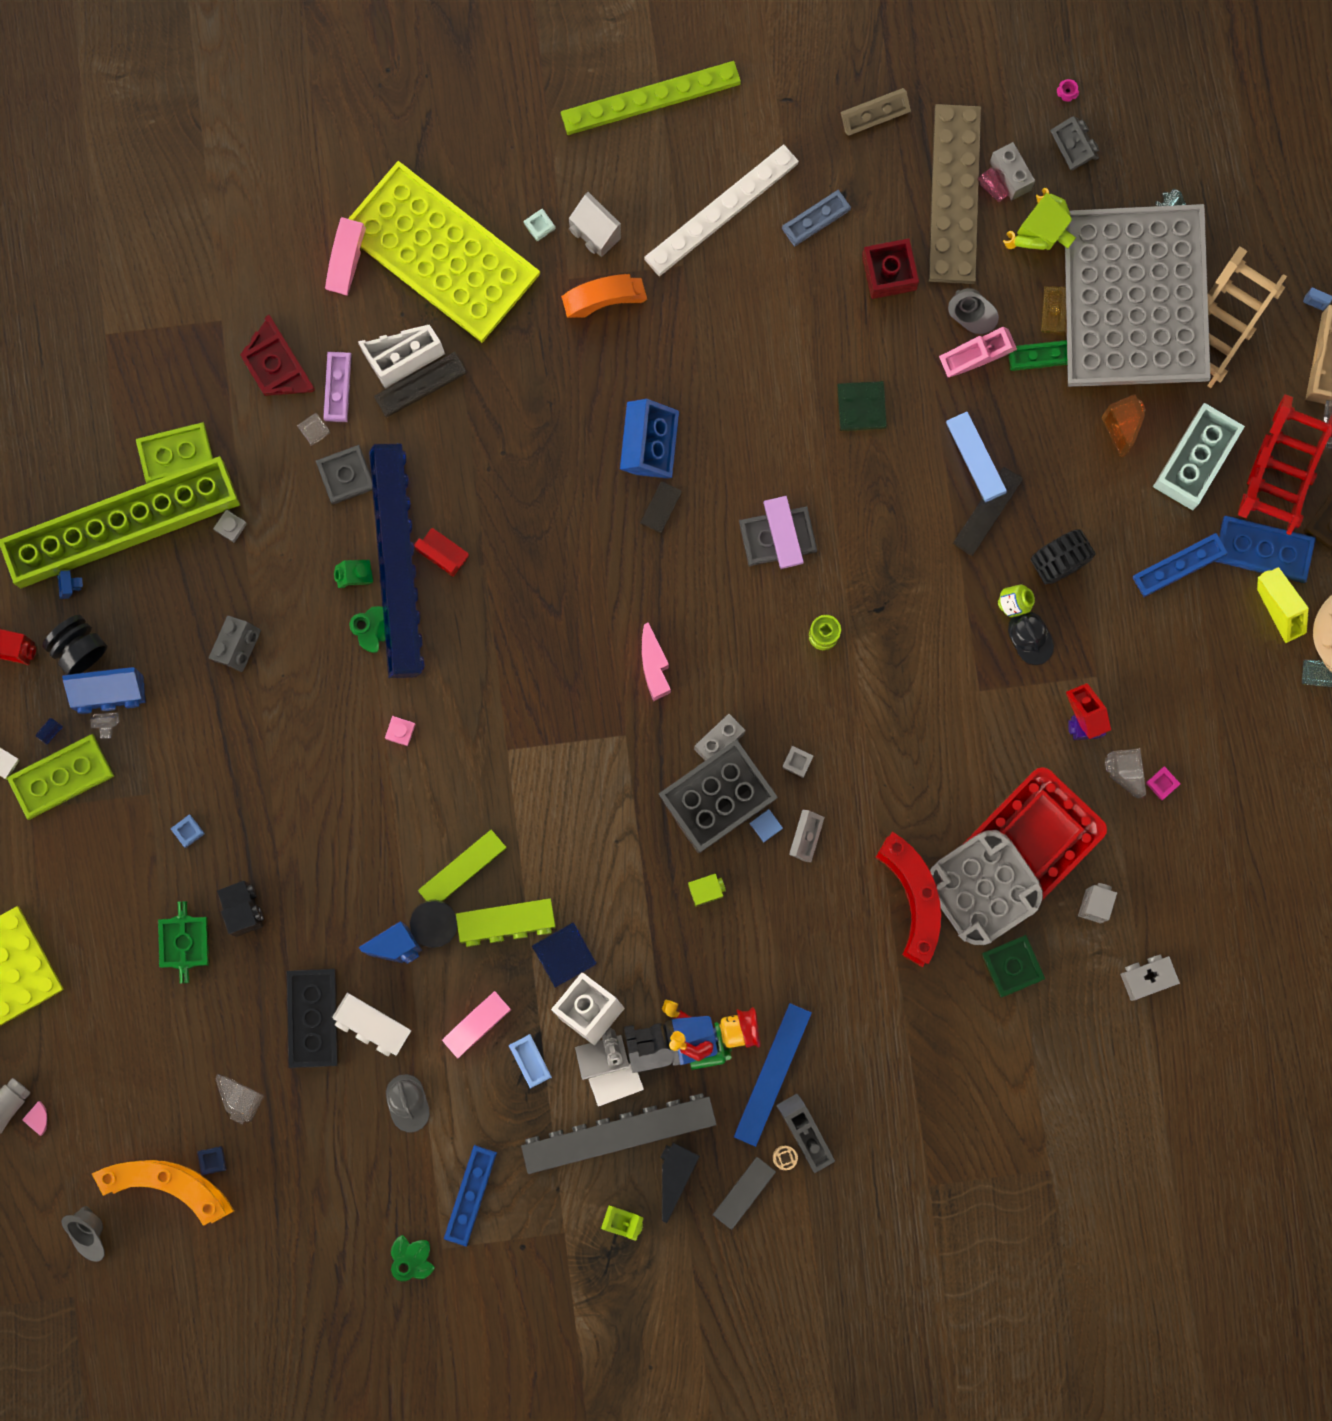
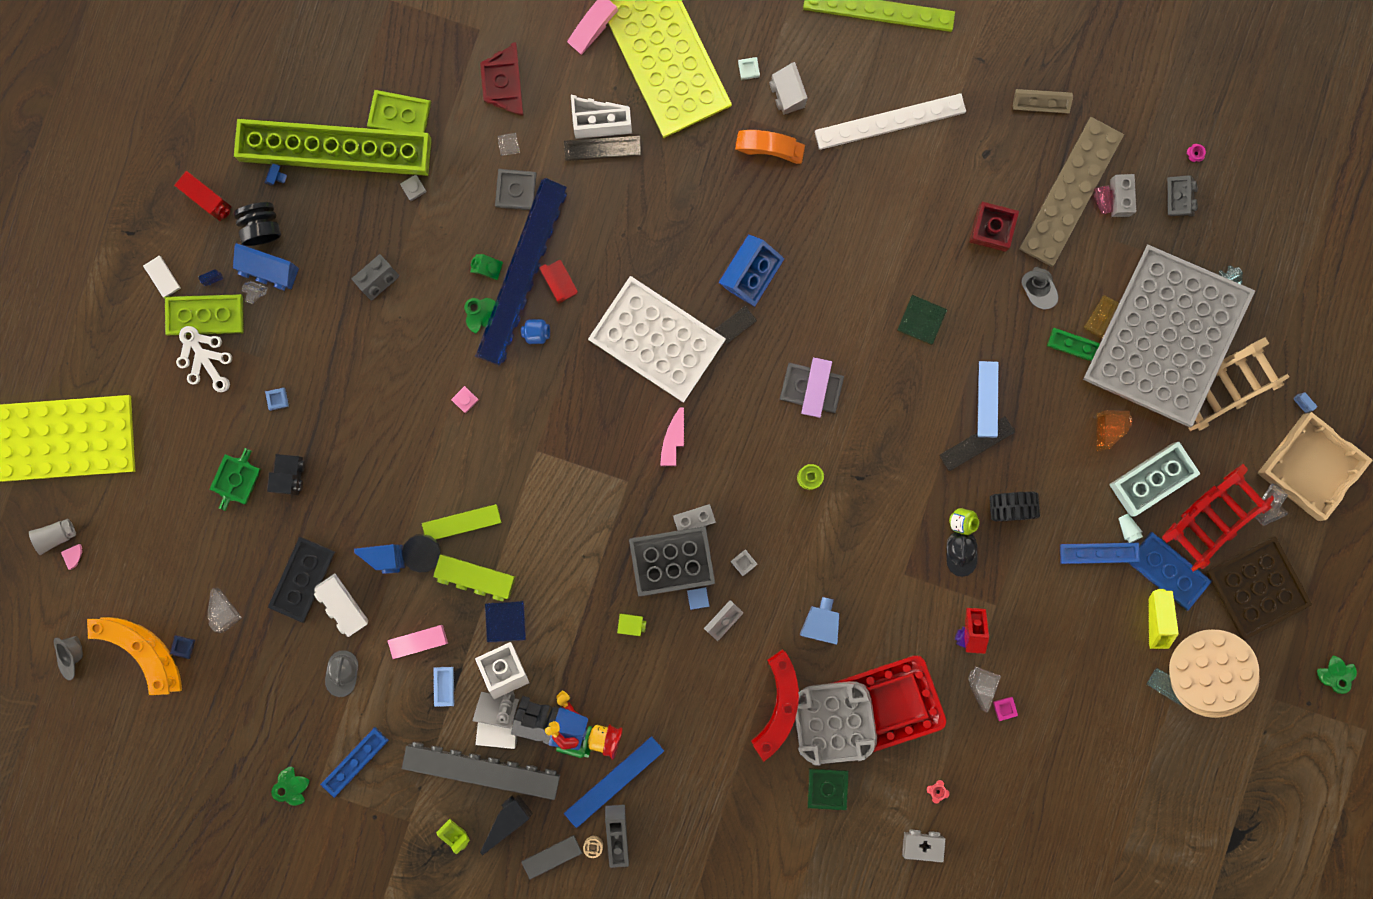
camera: 25 degrees right, 5 degrees up
(81, 822) = (202, 357): none -> white plant
(337, 386) = (541, 120): lavender tile -> none
(443, 618) = (535, 331): none -> blue head
(581, 563) = (657, 339): none -> white plate
(816, 218) = (958, 161): sand blue tile -> none
(916, 786) = (822, 623): none -> medium blue torso
(978, 352) = (1029, 321): bright pink slope -> none
(1044, 225) = (1126, 248): lime torso -> none
(1097, 903) = (912, 774): light grey brick -> none
(1141, 908) = (943, 792): none -> coral plate
(1200, 524) = (1130, 529): none -> light aqua cone

